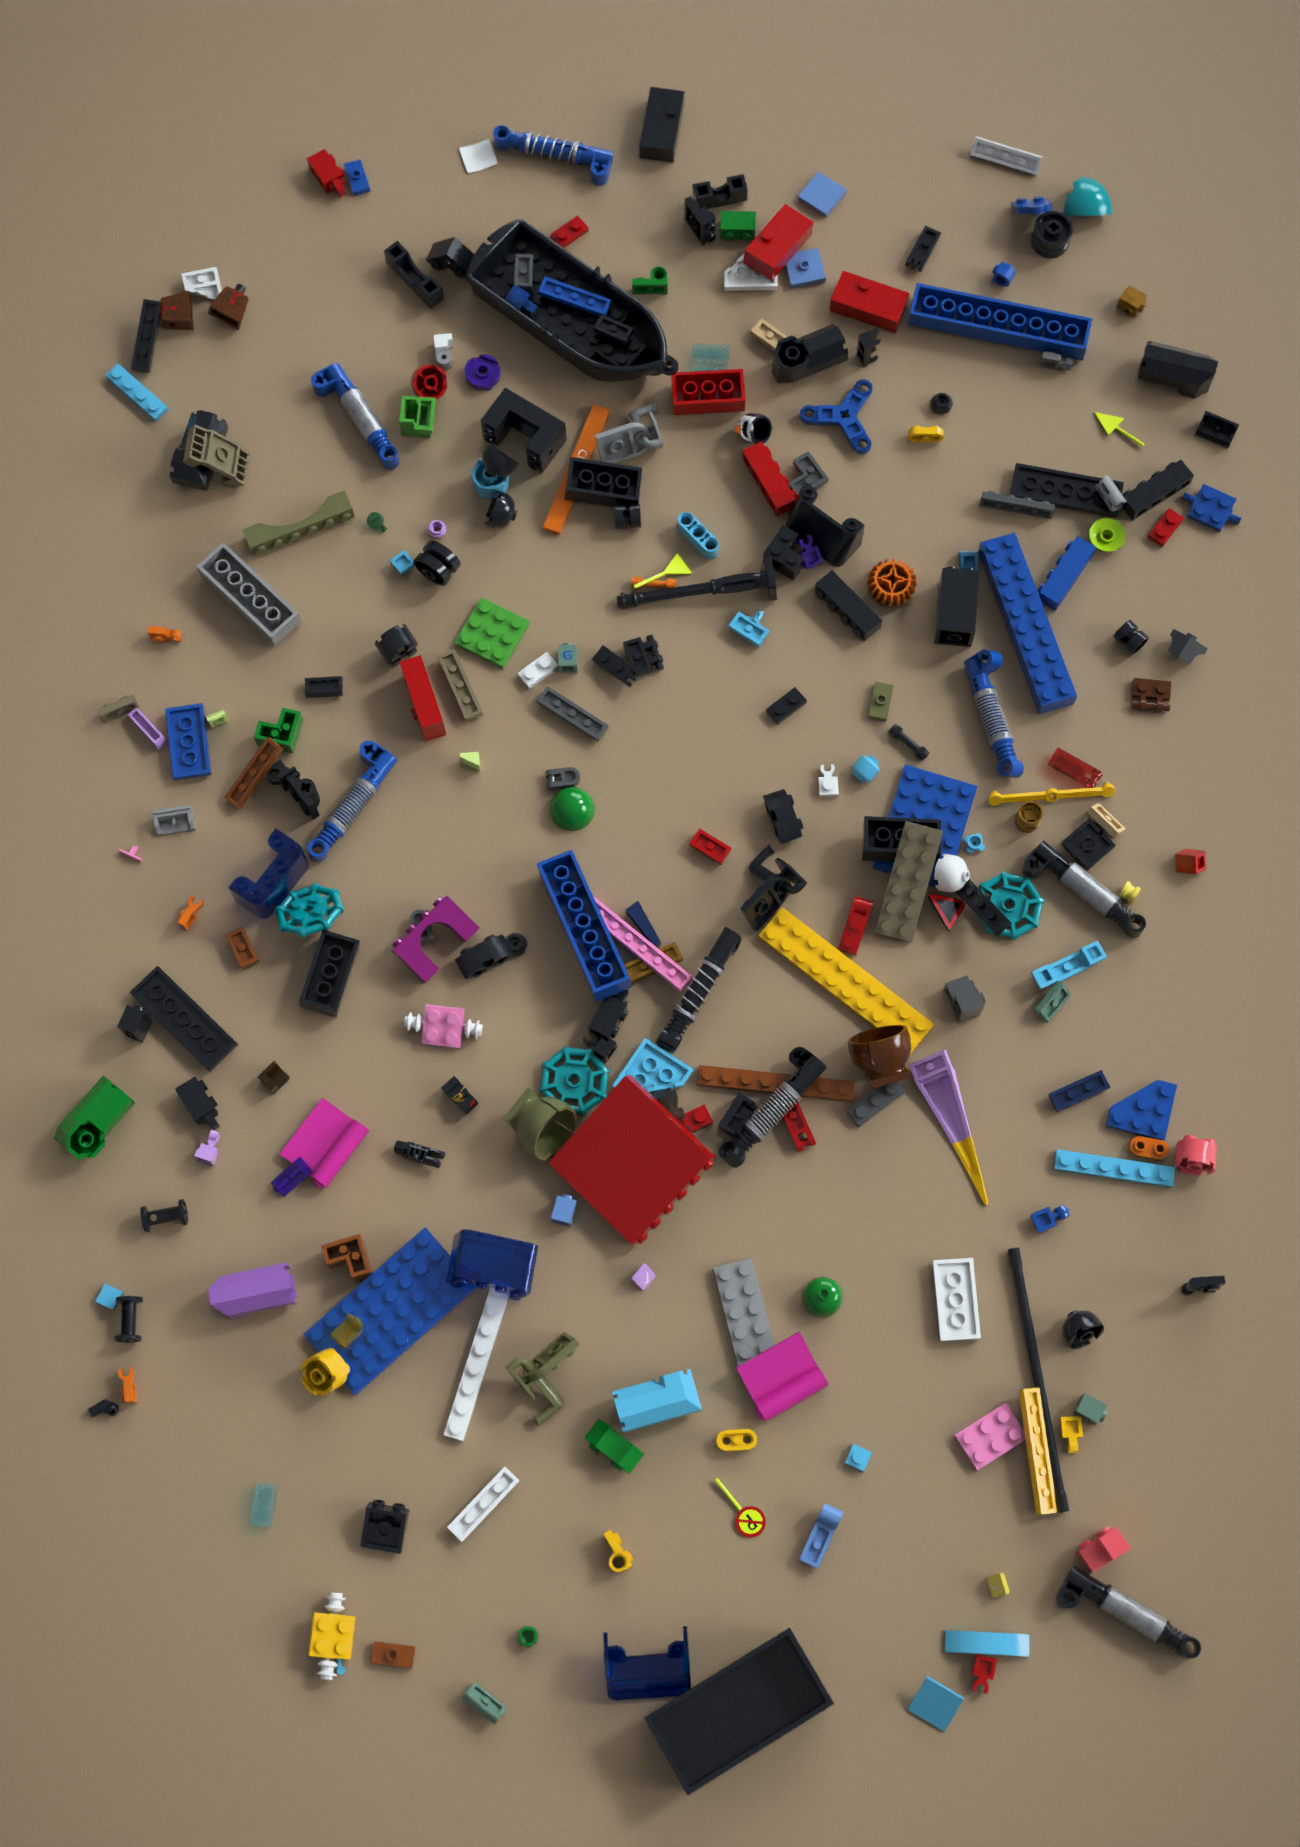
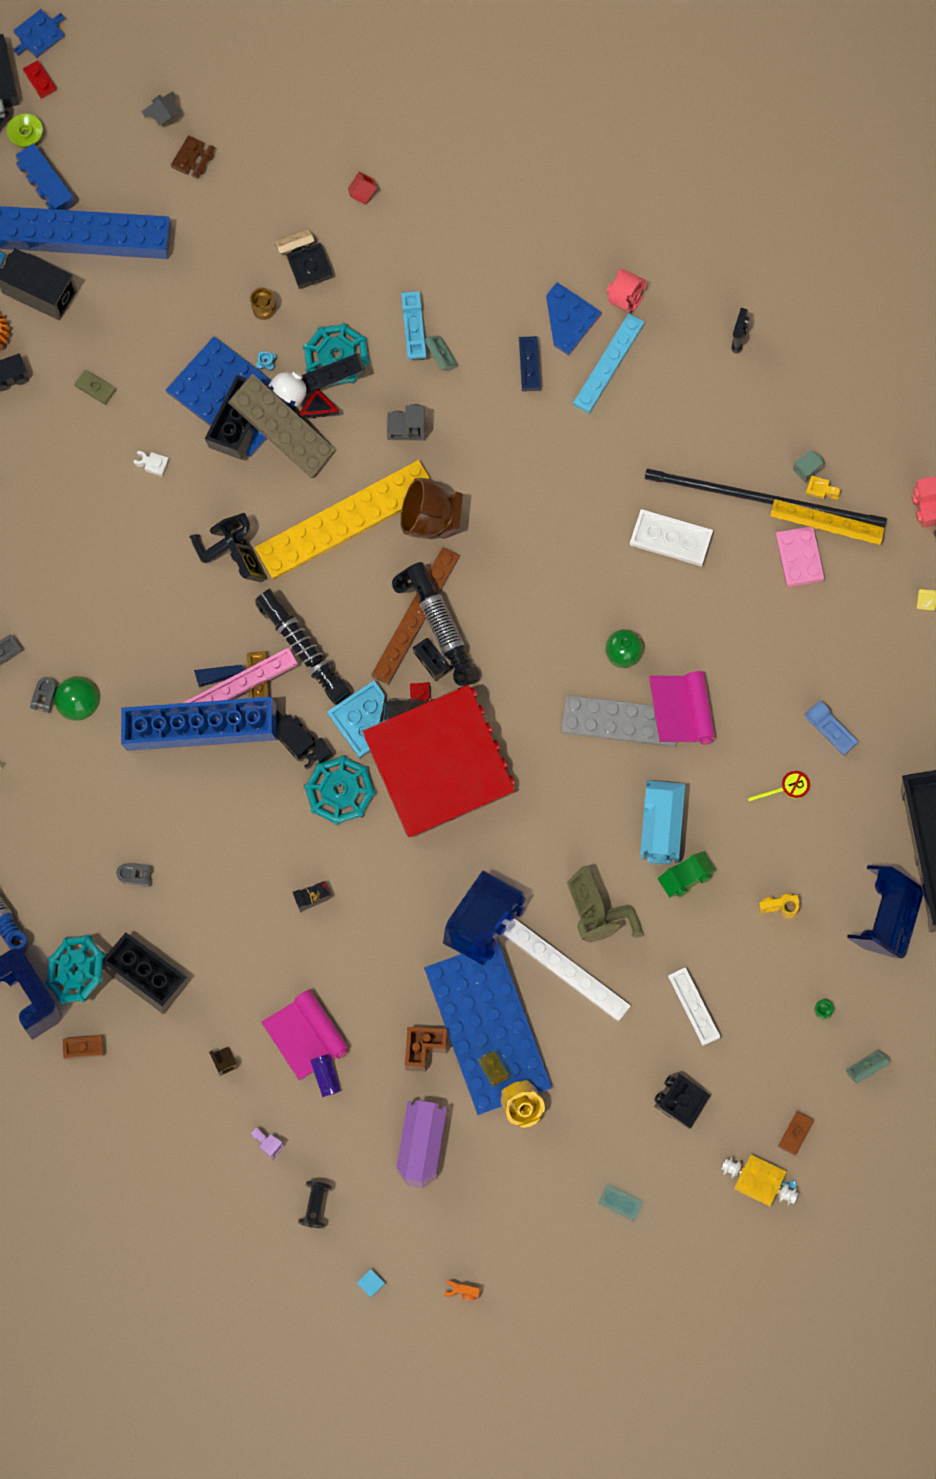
camera: 65 degrees left, 0 degrees up
(92, 1119) = (195, 1241): green brick -> none
(104, 1406) = (473, 1319): black arm -> none
(128, 1319) = (400, 1269): black hose -> none
(135, 1023) = (117, 1169): black brick -> none
(183, 1018) = (129, 1125): black plate -> none
(188, 915) = (29, 1089): orange plate -> none
(198, 1103) = (219, 1137): black hinge -> none
(409, 949) = (151, 889): magenta arch -> none
(419, 1153) = (351, 952): black hinge -> none
(443, 1026) = (239, 887): bright pink plate -> none
(483, 956) = (188, 826): black brick -> none
(521, 941) = (190, 801): black plate -> none
(536, 1123) = (370, 833): olive plate -> none
(564, 1210) = (457, 841): medium blue brick -> none
(643, 1277) = (545, 795): lavender slope -> none
(710, 846) = (169, 588): red plate -> none
(736, 1440) = (721, 769): yellow plate -> none
(783, 816) = (169, 512): black brick -> none
(786, 705) = (61, 470): black plate -> none
(798, 1125) = (462, 610): red plate -> none
(855, 925) = (299, 490): red plate -> none
(858, 1457) = (775, 673): medium azure plate -> none
(865, 768) = (155, 424): medium azure head -> none
(875, 1102) = (469, 539): dark grey plate -> none
(920, 752) = (160, 372): black bar -> none
(941, 1090) = (482, 476): lavender plate -> none
(993, 716) = (151, 296): blue piece -> none
(1045, 1219) = (631, 436): blue plate -> none
(1075, 768) = (233, 248): clear red plate -> none
(1081, 1327) = (736, 444): black cylinder -> none
(1084, 886) = (346, 284): piece -> none
(1106, 790) = (249, 277): yellow piece -> none
(1129, 892) = (368, 249): light yellow wheel -> none
(1131, 637) = (132, 150): black wheel -> none
(1149, 1148) = (603, 327): orange plate -> none

